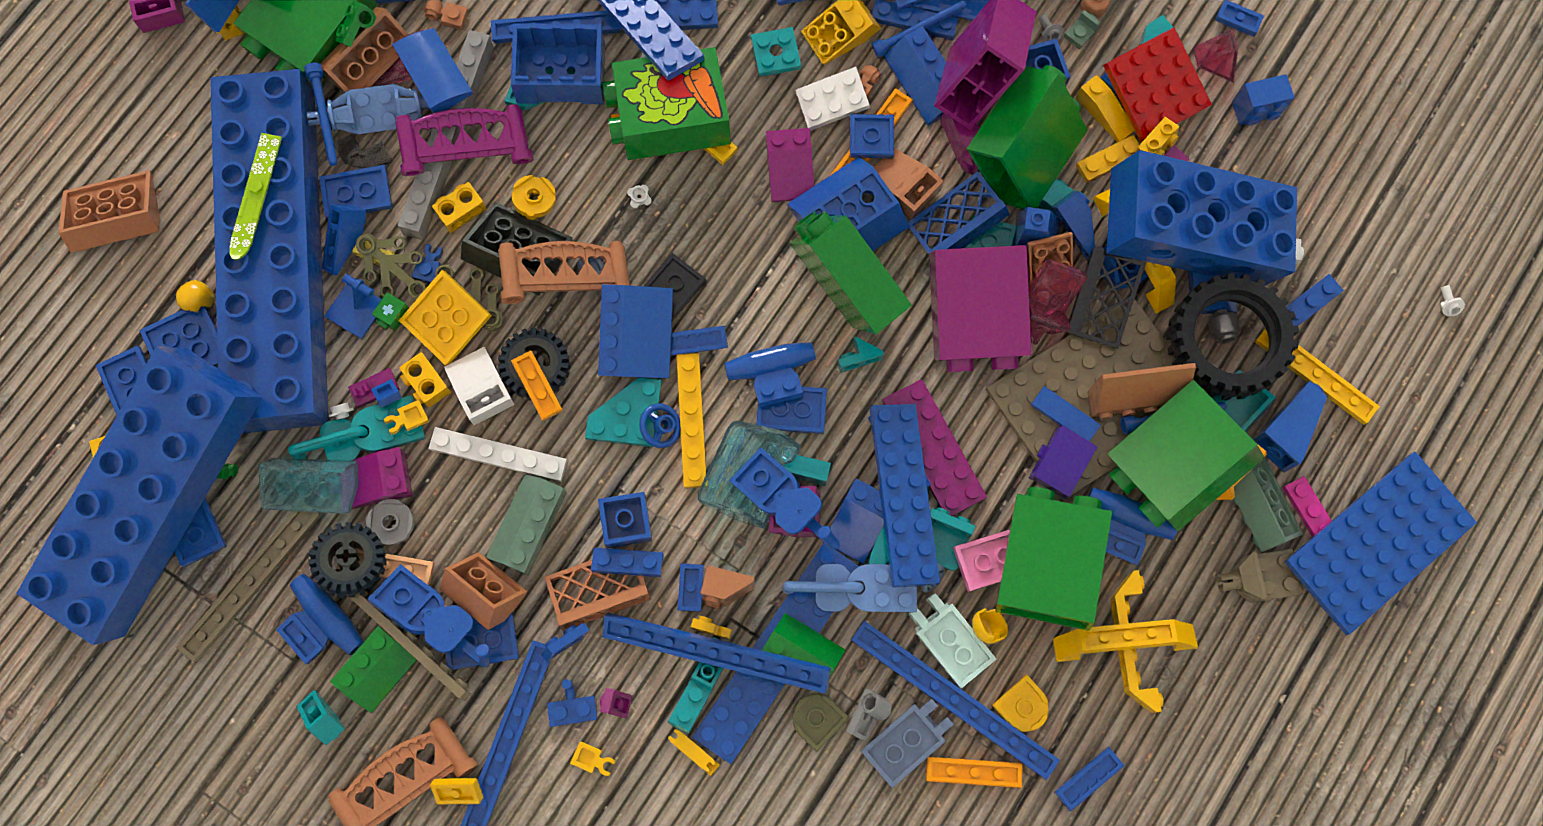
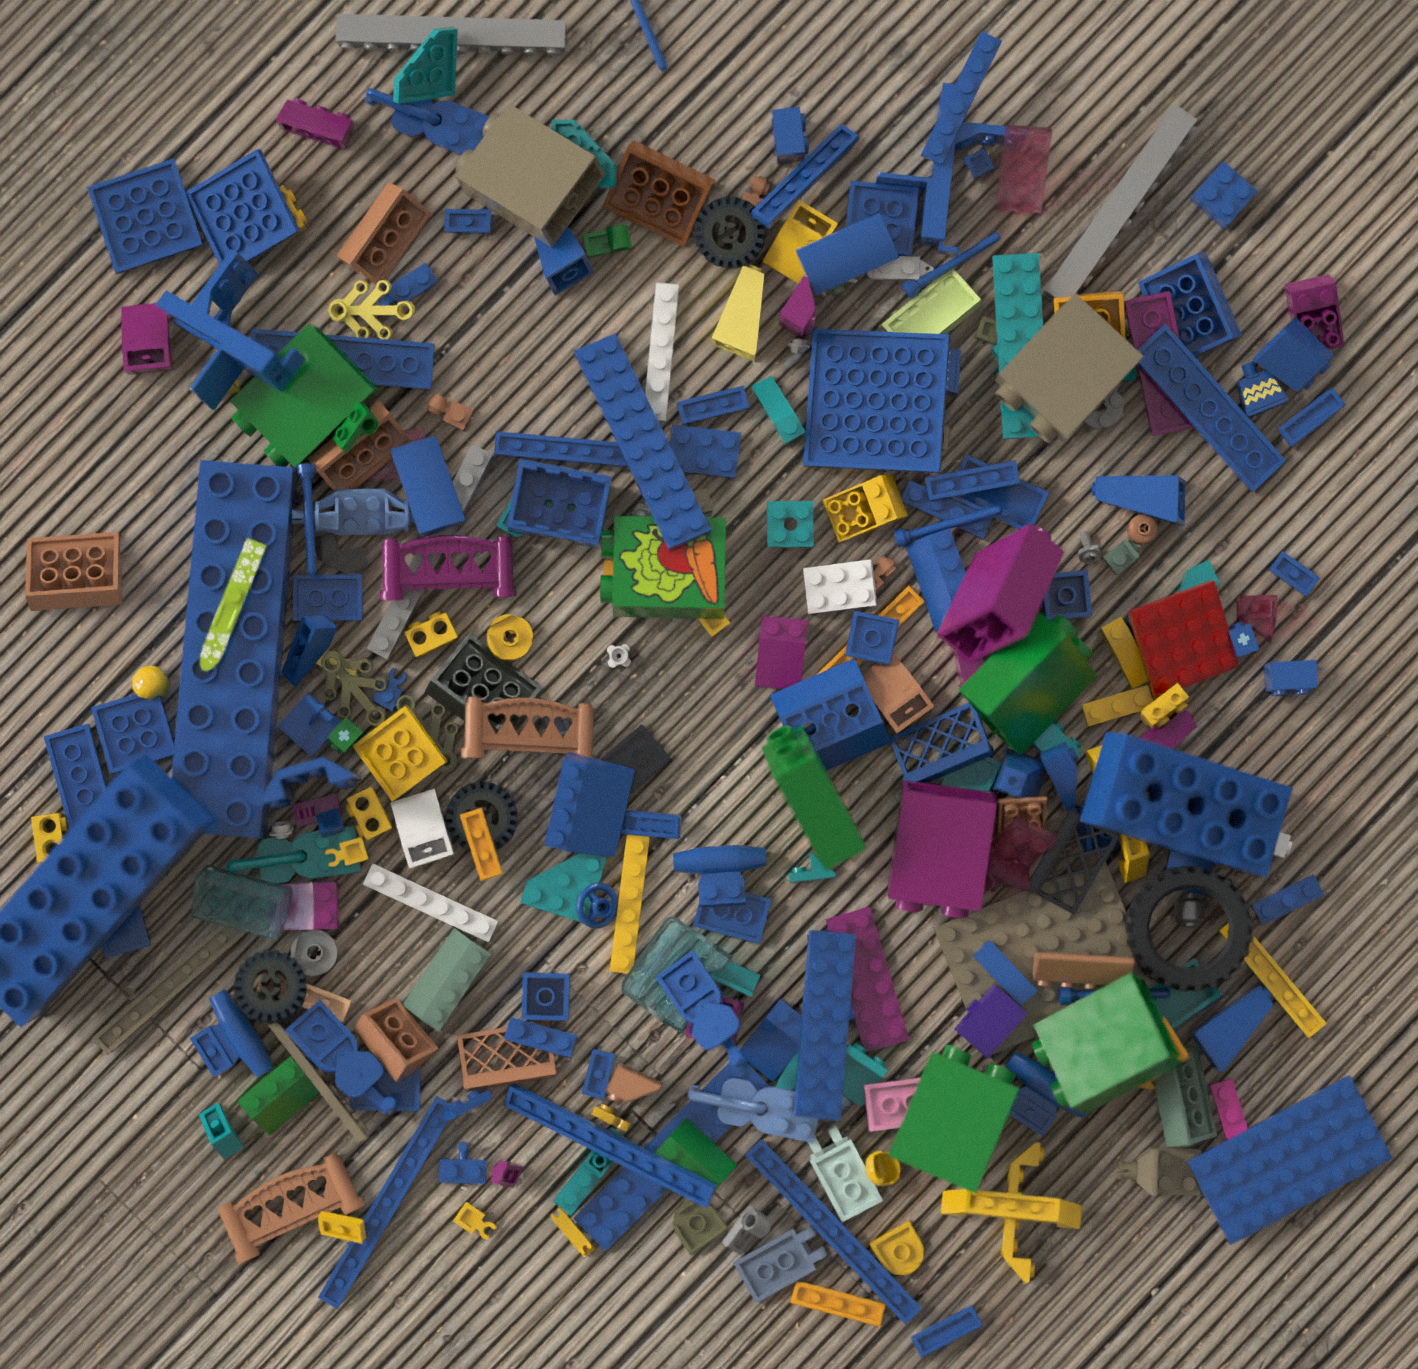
camera: 15 degrees right, 10 degrees up
(347, 345) = (280, 791): none -> blue slope
(1211, 79) = (1243, 639): none -> blue brick

